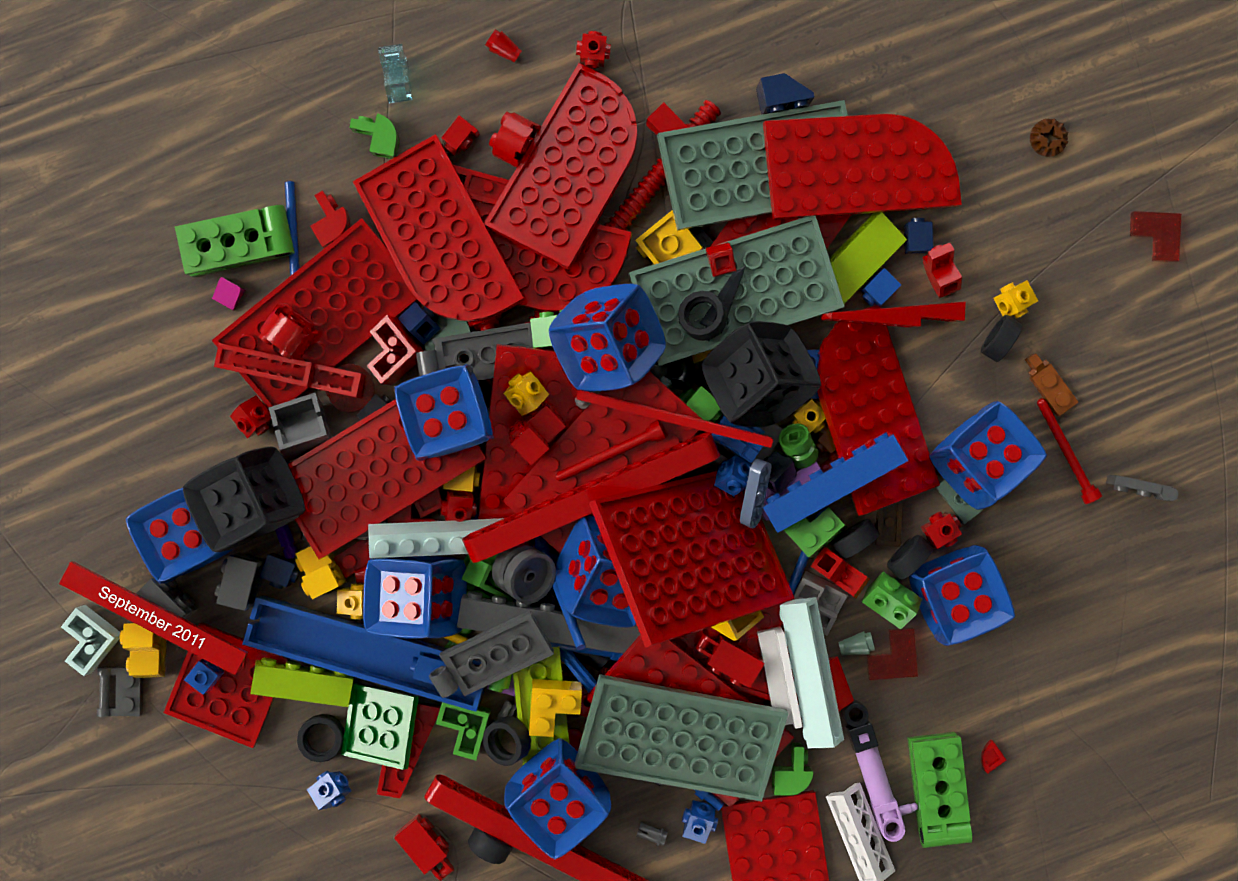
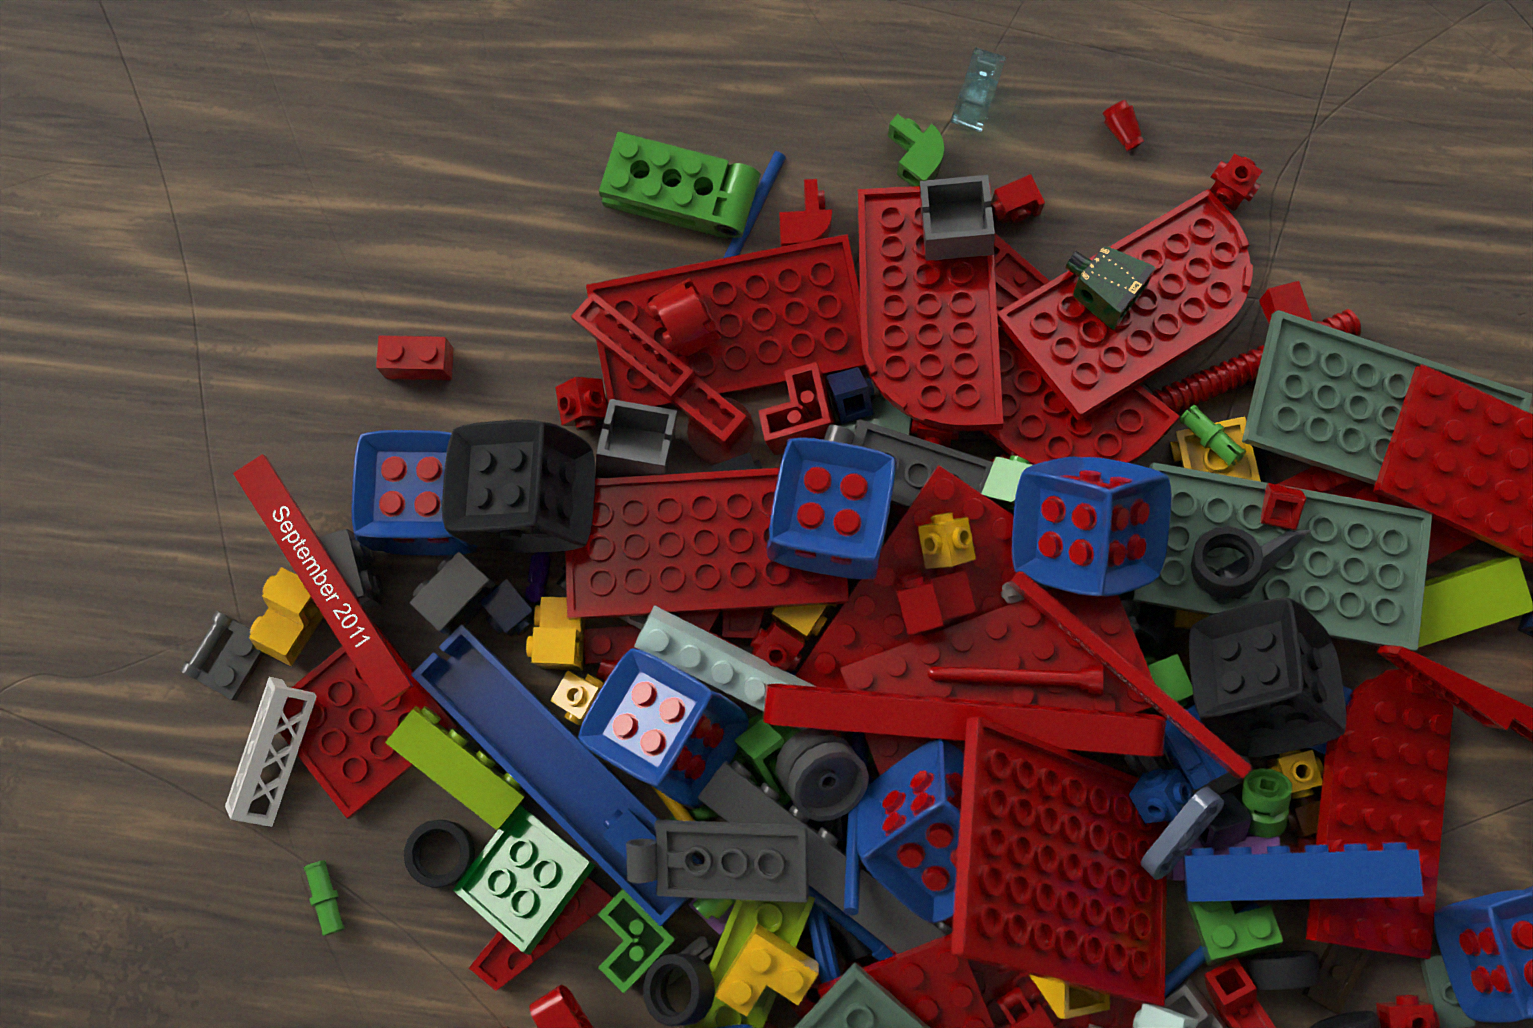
camera: 30 degrees right, 10 degrees down
(94, 636) = (235, 571): light aqua brick -> none
(128, 443) = (415, 357): none -> red brick
(174, 739) = (257, 748): none -> white fence
(204, 676) = (341, 689): blue brick -> none
(228, 293) = (635, 244): dark pink slope -> none
(266, 800) = (324, 898): none -> bright green pin
(329, 790) = (412, 928): blue brick -> none
(425, 174) = (957, 217): none -> dark grey piece
(513, 138) = (1084, 231): red brick -> none
(544, 168) = (1109, 283): none -> dark green torso
(658, 233) = (1212, 436): none -> bright green pin
(781, 94) = (1456, 343): dark blue slope -> none
(880, 288) = (1469, 654): blue brick -> none

